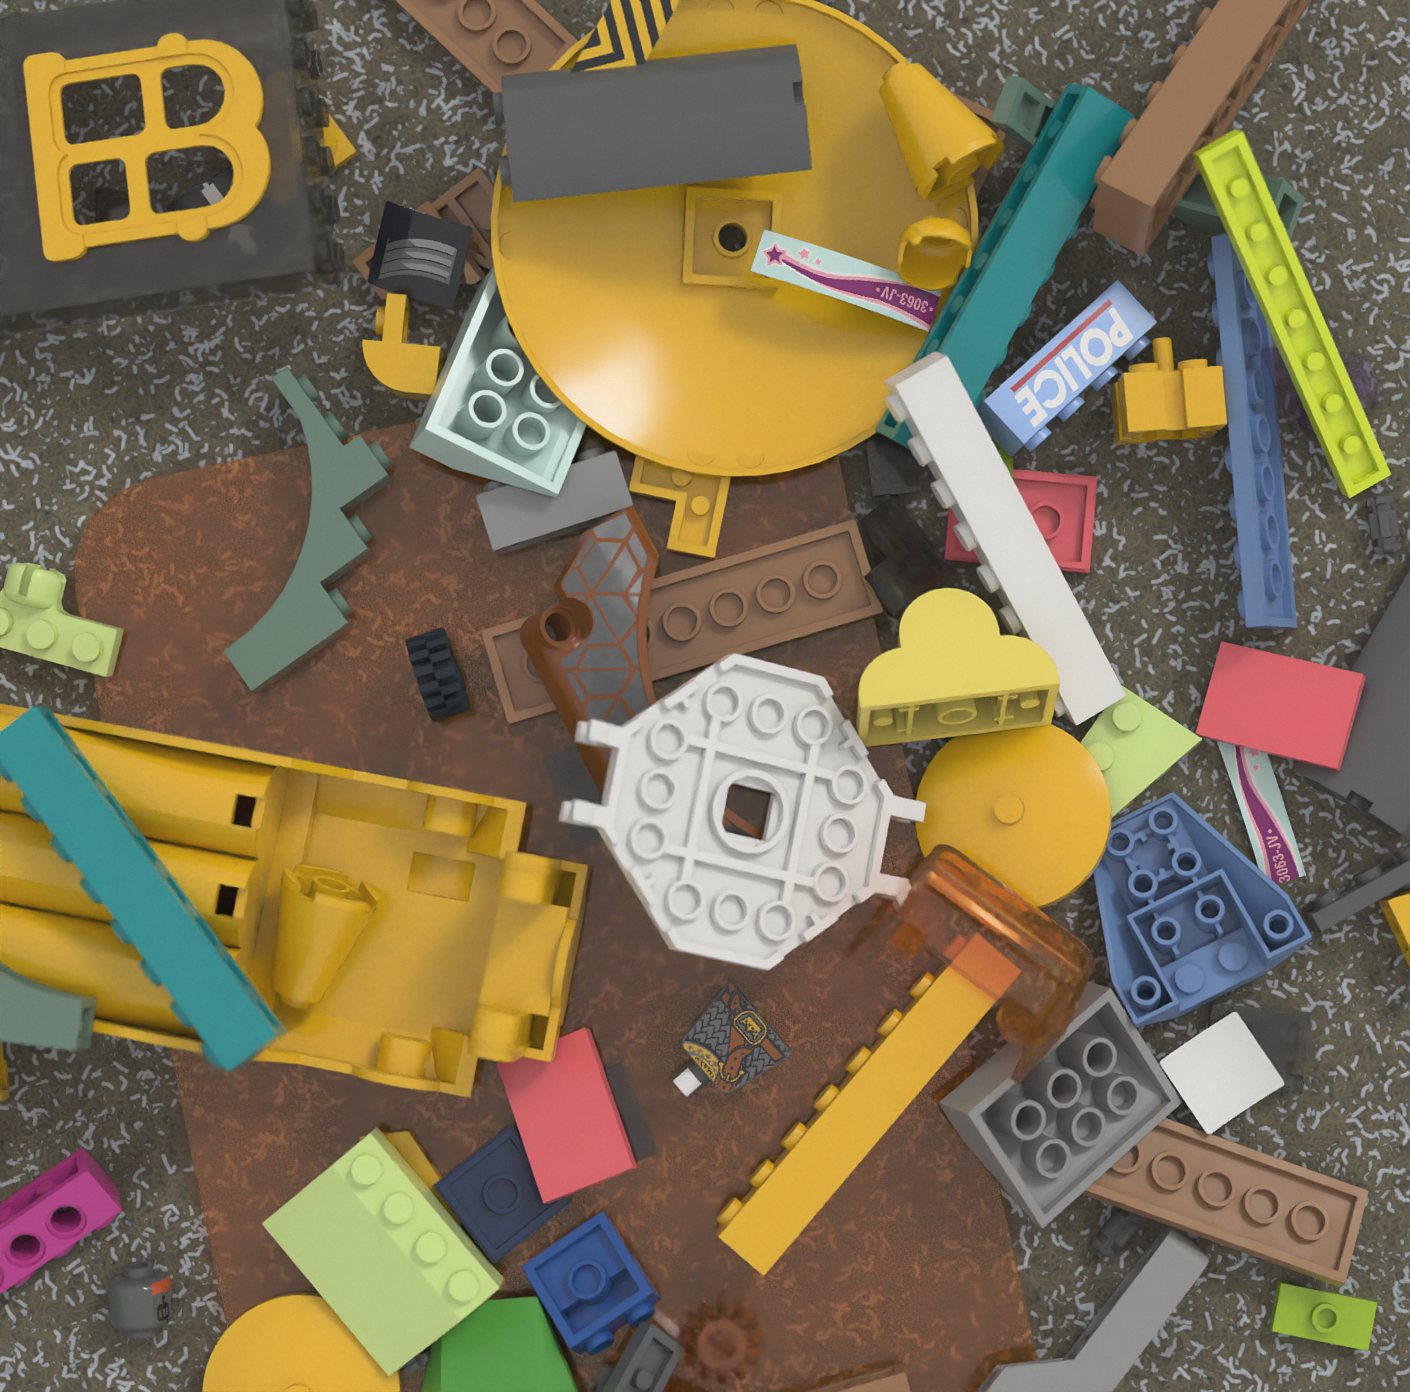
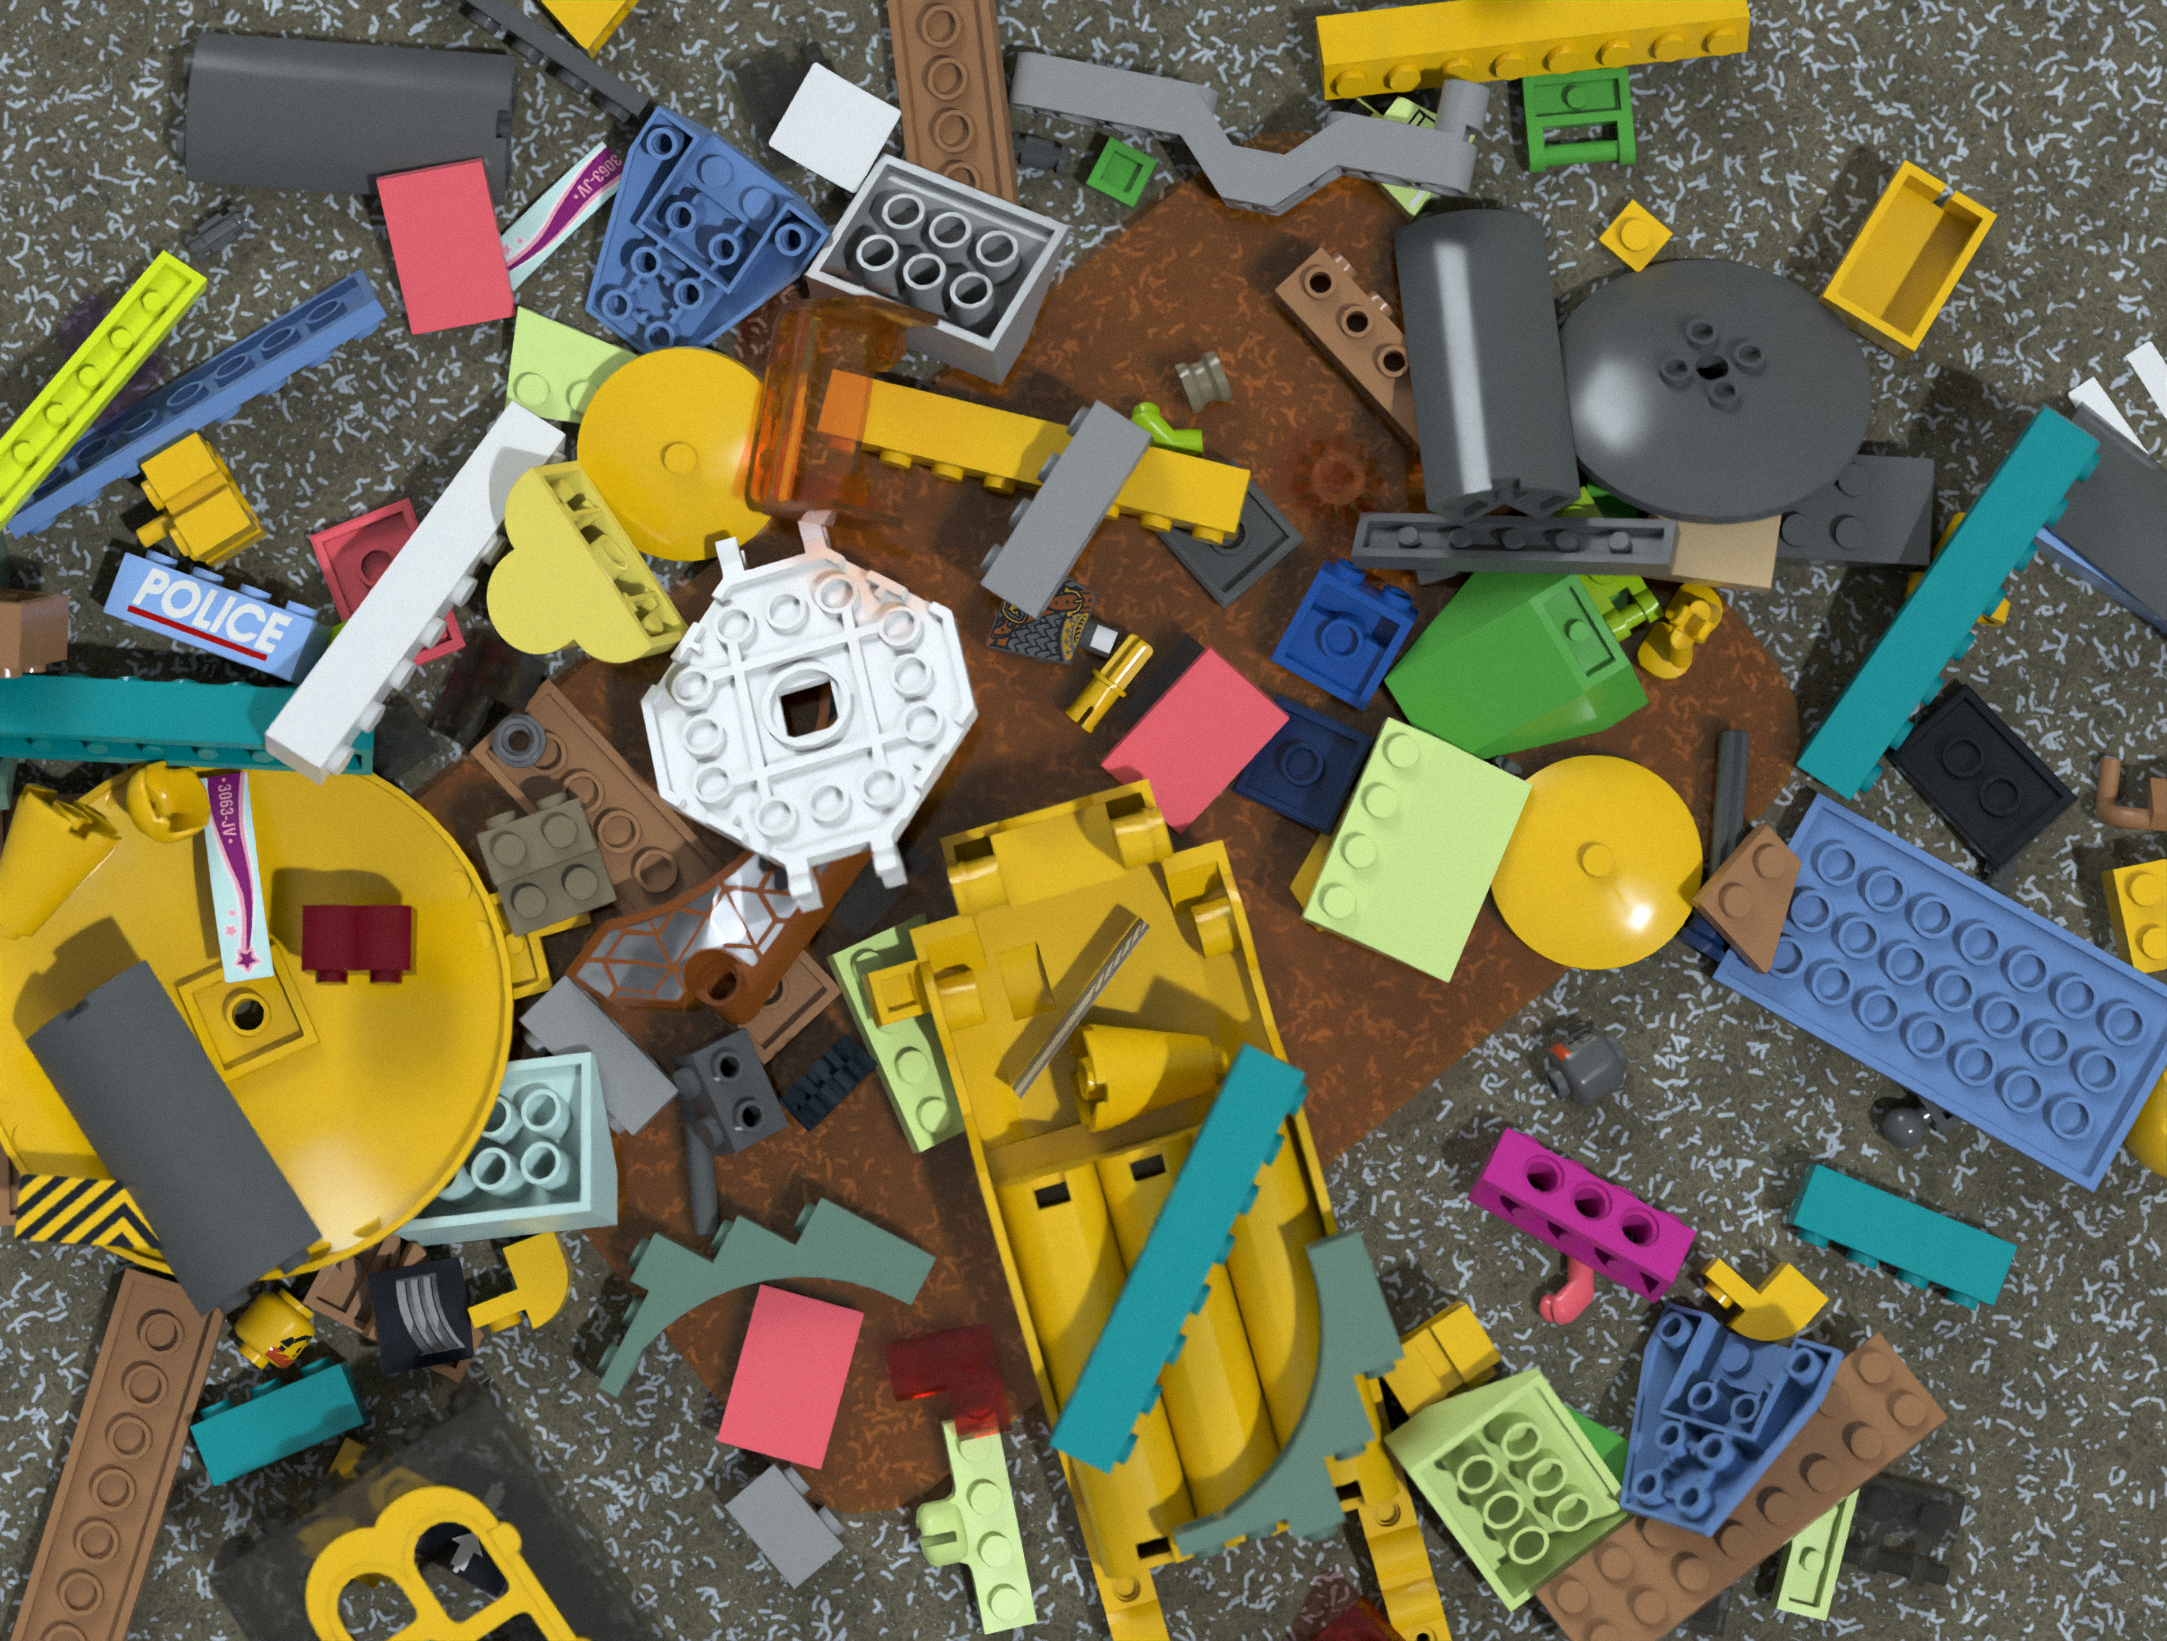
camera: 115 degrees left, 0 degrees up
(105, 464) = (786, 1523): none -> light grey brick
(159, 668) = (955, 1363): none -> clear red plate
(221, 527) = (790, 1376): none -> coral tile
(393, 911) = (1080, 1007): none -> light grey sticker
(395, 104) = (279, 1420): none -> teal brick
(437, 543) = (701, 1176): none -> dark grey piece
(454, 754) = (906, 1051): none -> yellowish green wing
(470, 135) = (274, 1329): none -> yellow head
(471, 590) = (728, 1092): none -> dark grey brick
(480, 766) = (896, 993): none -> yellow plate
(650, 1069) = (1110, 681): none -> yellow axle
(694, 1224) = (1237, 565): none -> dark grey tile
(730, 535) = (546, 864): none -> dark tan plate
(742, 351) = (359, 941): none -> dark red brick
(806, 1108) = (1066, 510): none -> light grey brick
(838, 1210) = (1179, 441): none -> lime arm
(842, 547) = (504, 732): none -> flat silver plate
(859, 1271) = (1203, 382): none -> dark tan wheel
(1067, 1290) = (1121, 173): none -> bright green plate

